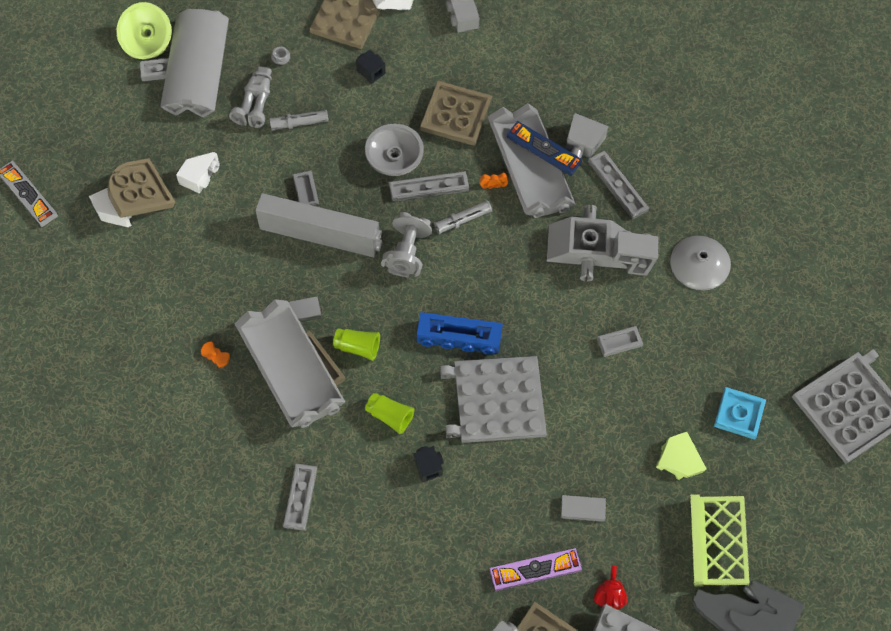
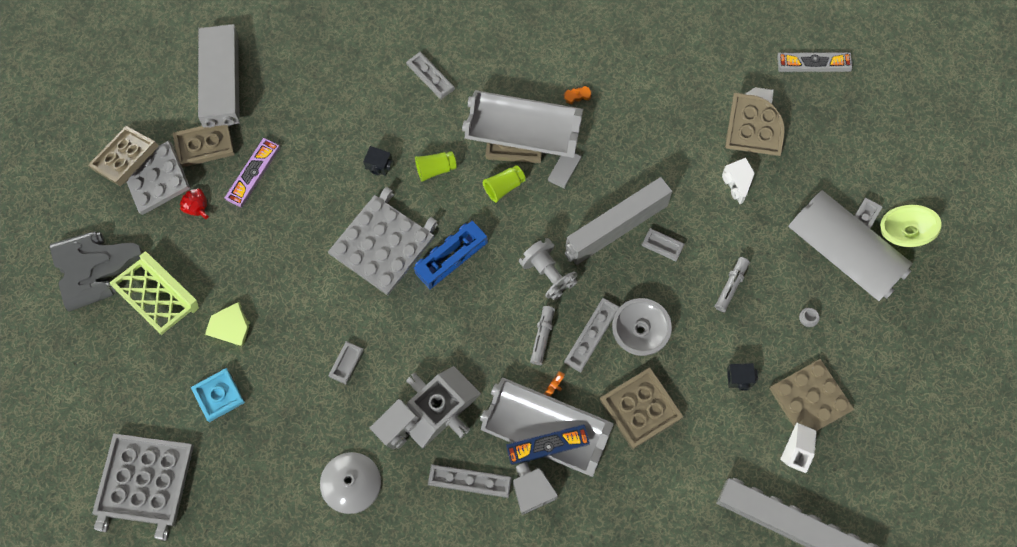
camera: 135 degrees right, 5 degrees up
(258, 88) = (789, 275): light grey piece -> none
(583, 508) = (260, 233): light grey tile -> none

